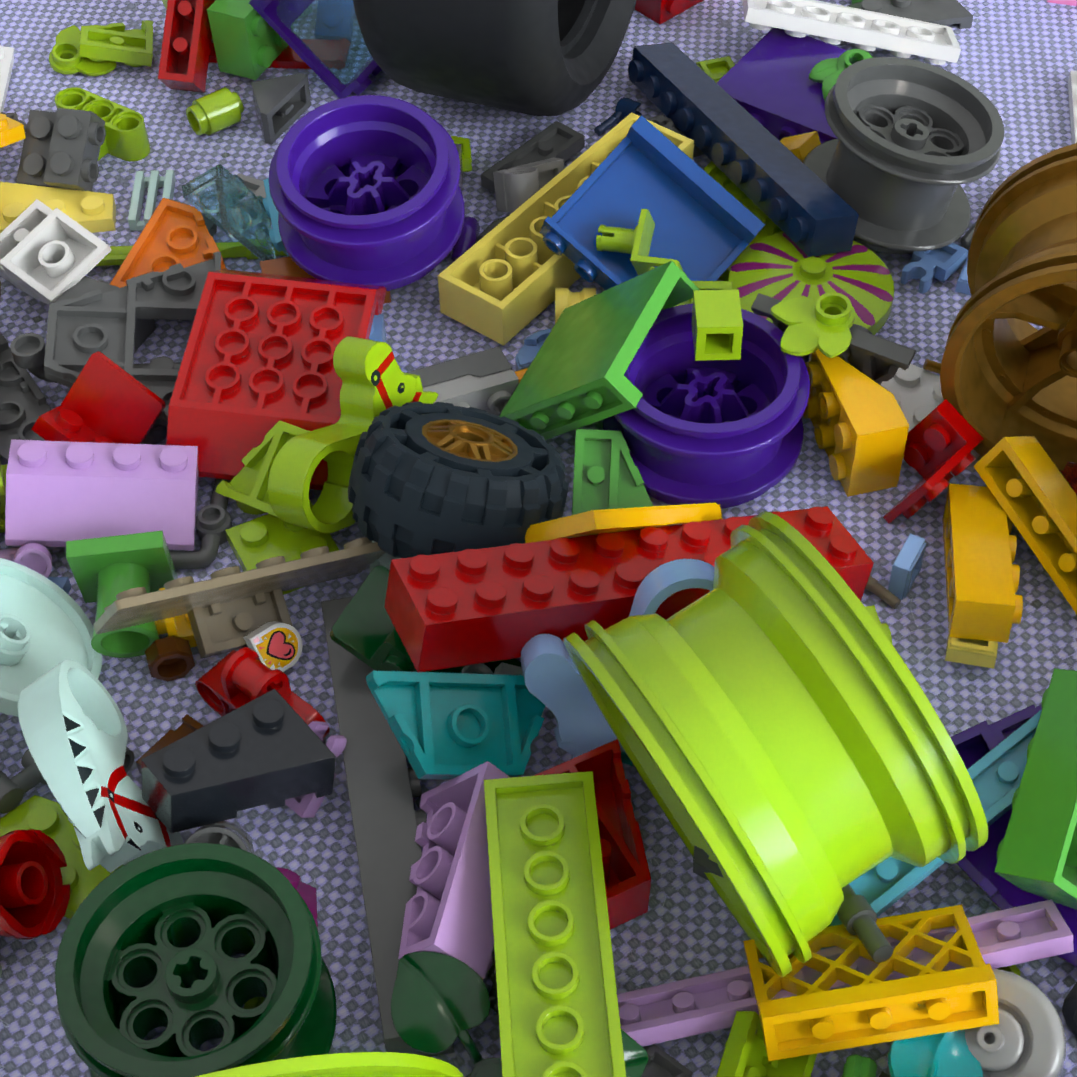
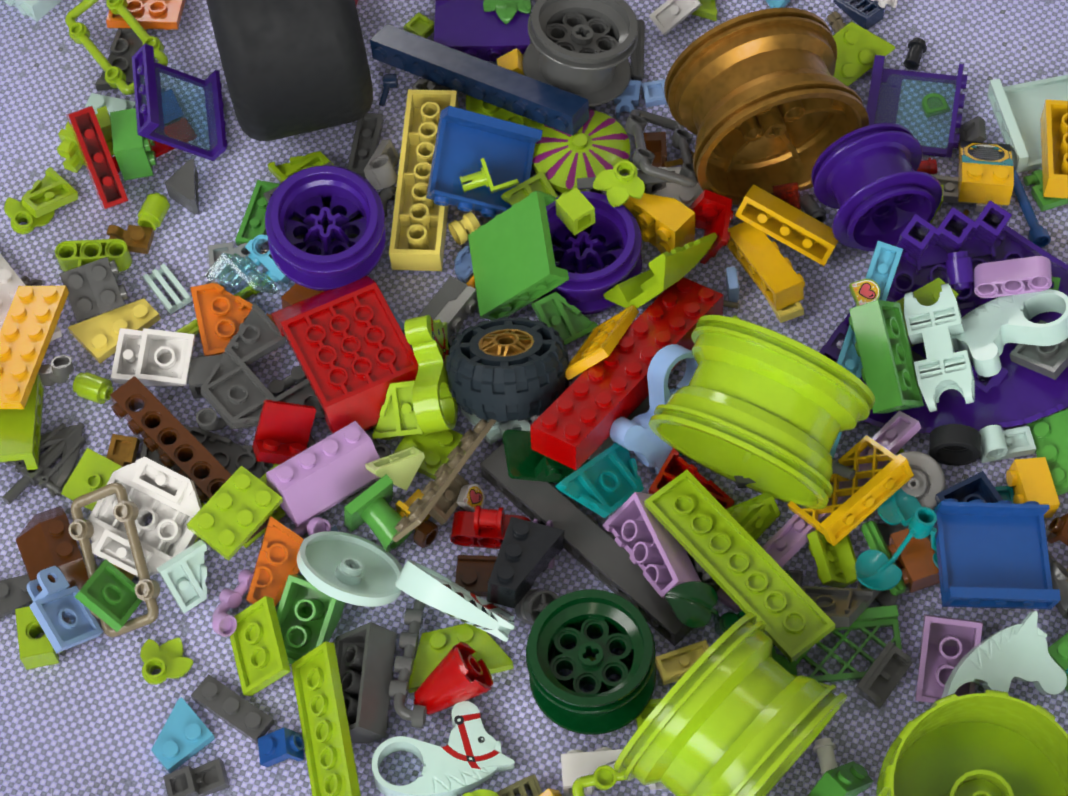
camera: 30 degrees left, 10 degrees up
(168, 133) = (136, 237): none -> pearl gold plate
(202, 543) = (400, 466): none -> yellowish green slope
(666, 928) = (756, 514): none -> lime wing
(803, 476) = (663, 273): none -> lime wedge
(880, 312) = (680, 139): none -> dark grey bar
(926, 333) = (656, 144): none -> reddish brown panel

